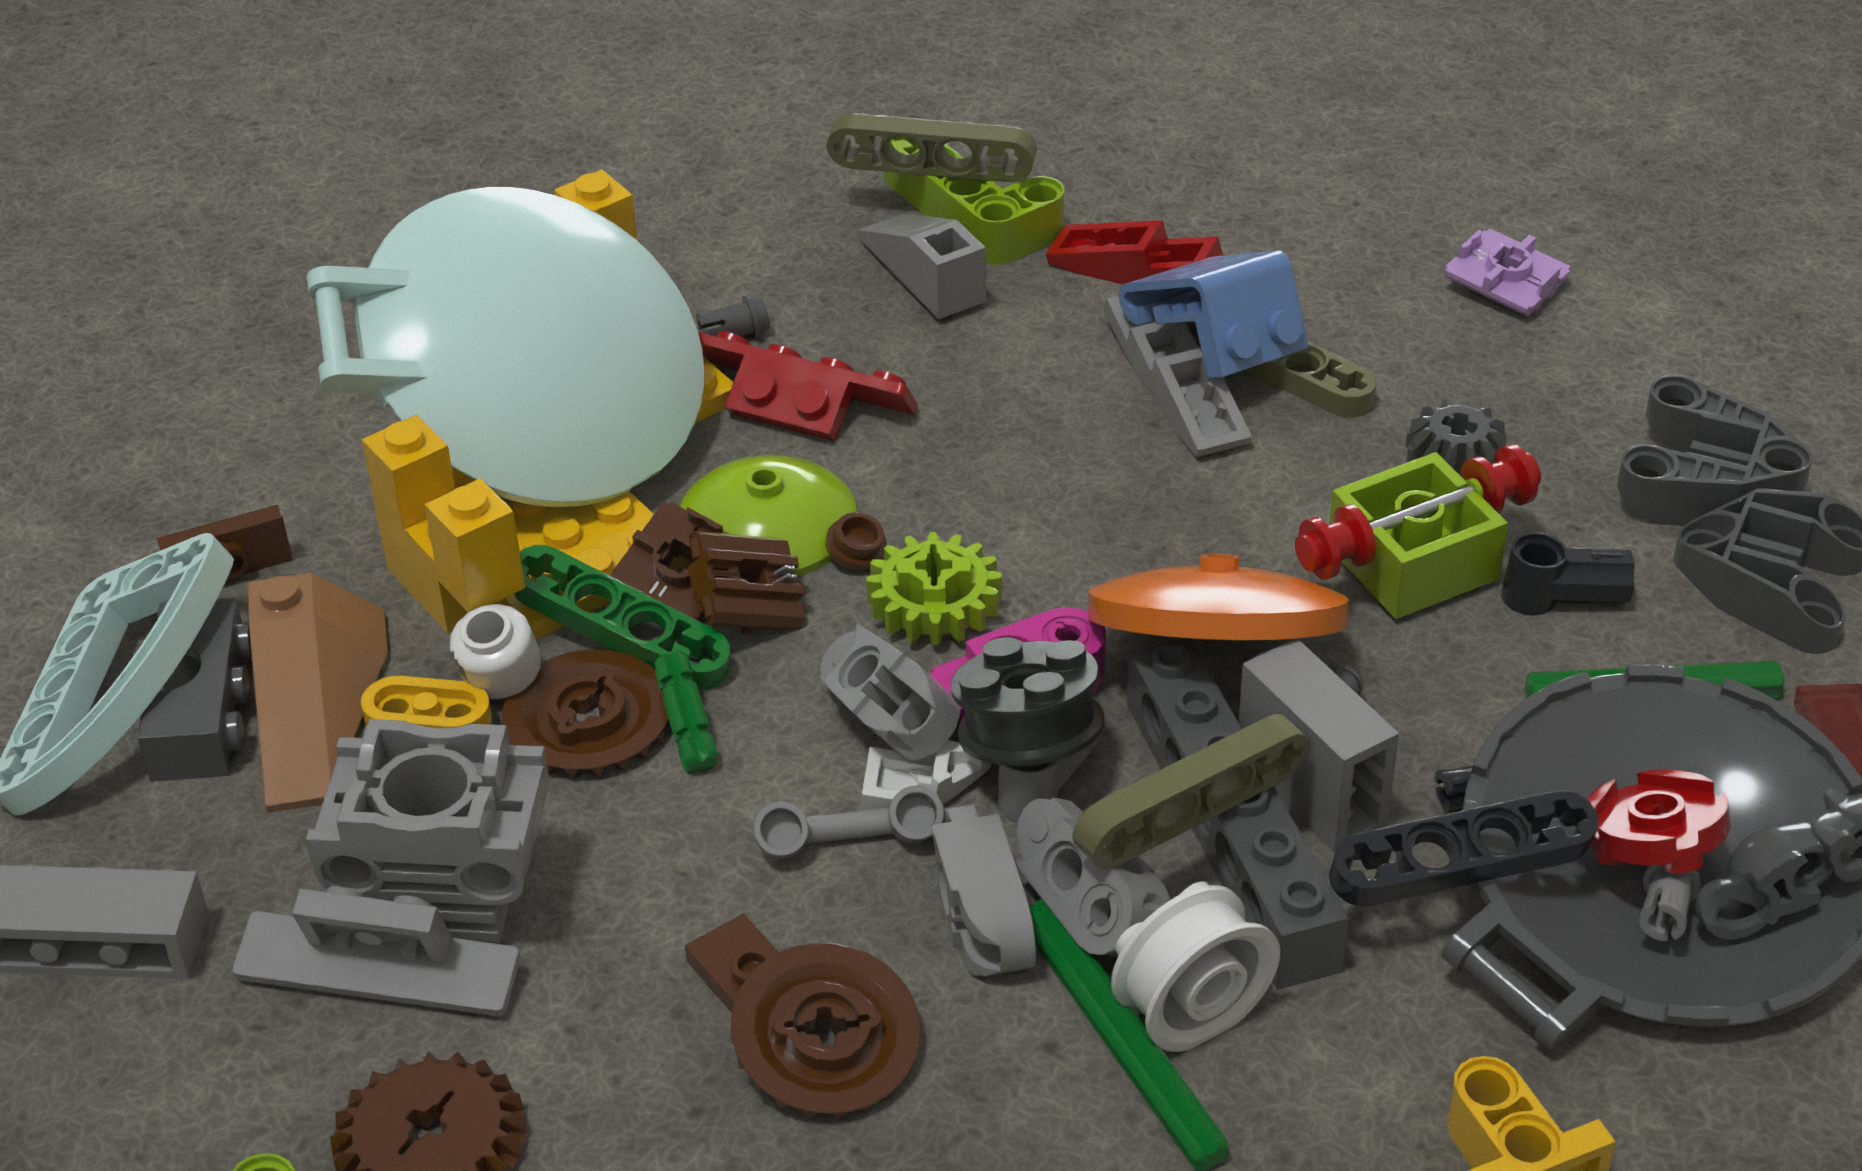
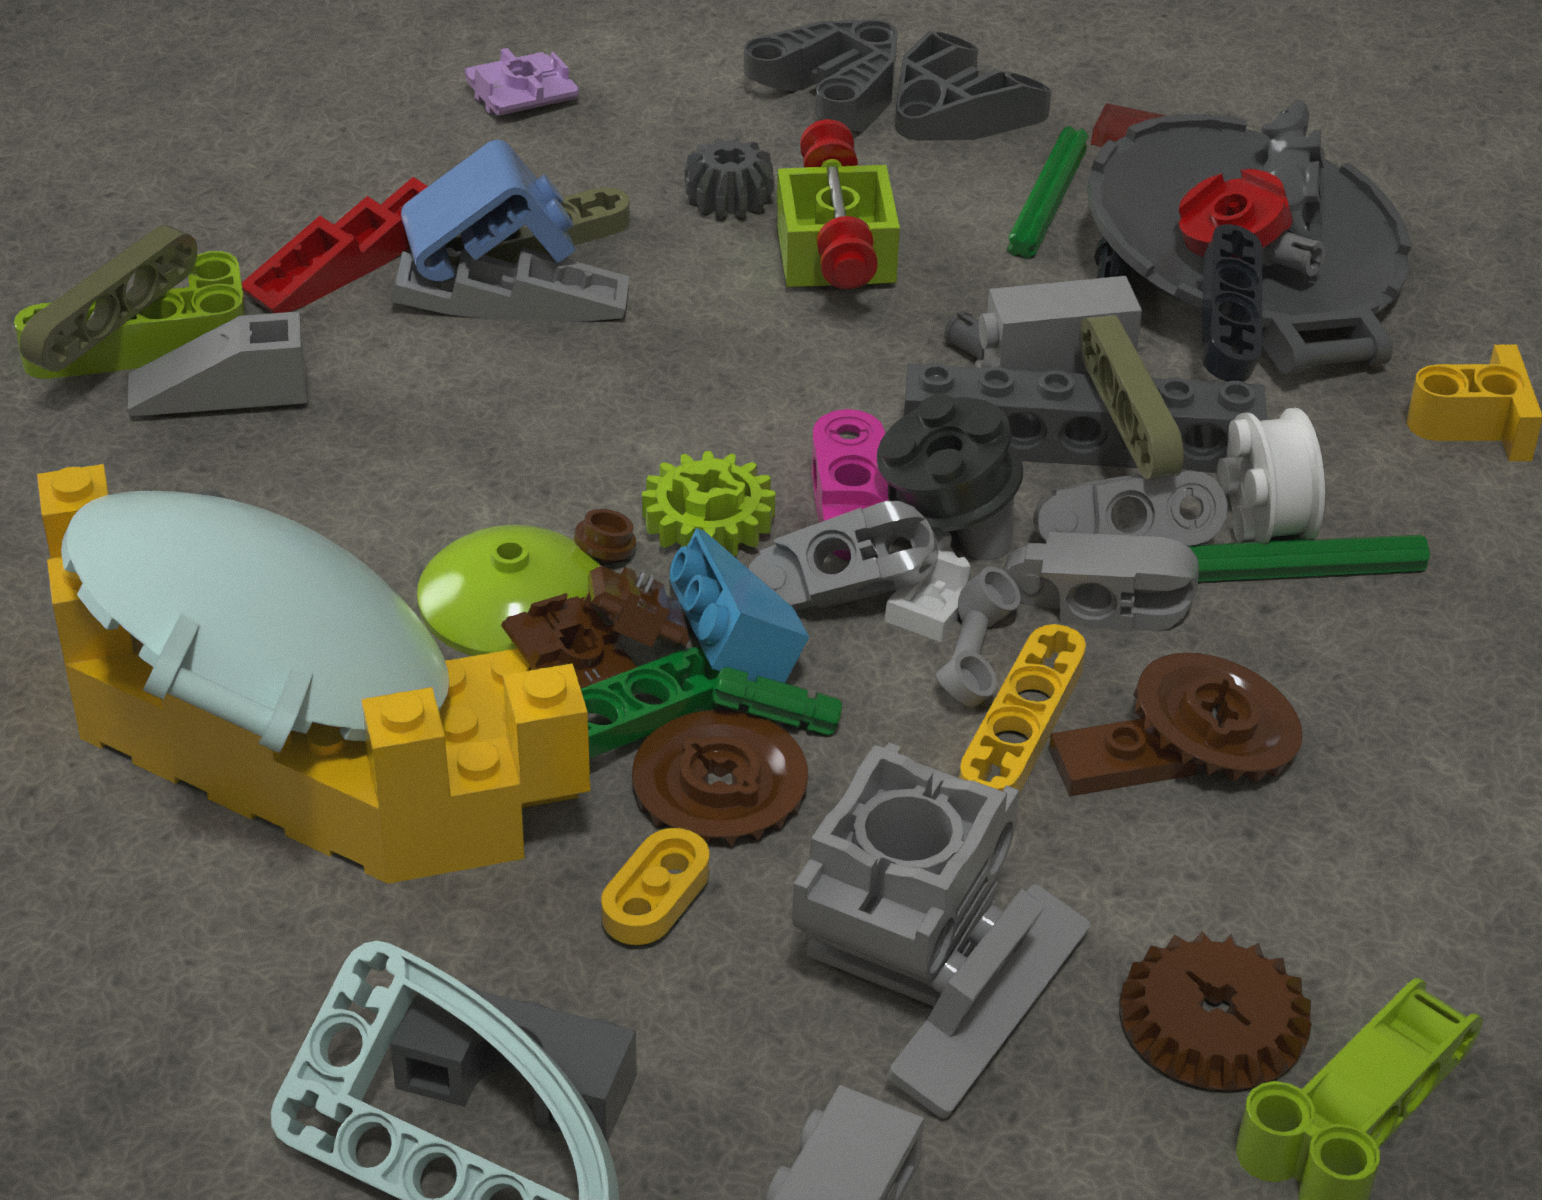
camera: 70 degrees left, 0 degrees up
(253, 539) = (298, 988): reddish brown plate -> none
(311, 664) = (567, 968): medium nougat wedge -> none
(495, 650) = (630, 798): white head -> none
(758, 652) = (735, 612): none -> dark azure slope
(766, 879) = (1028, 717): none -> yellow beam
(797, 392) = (370, 502): red bracket -> none
(1218, 603) = (887, 336): orange dish -> none
(1547, 572) = (918, 178): black piece -> none

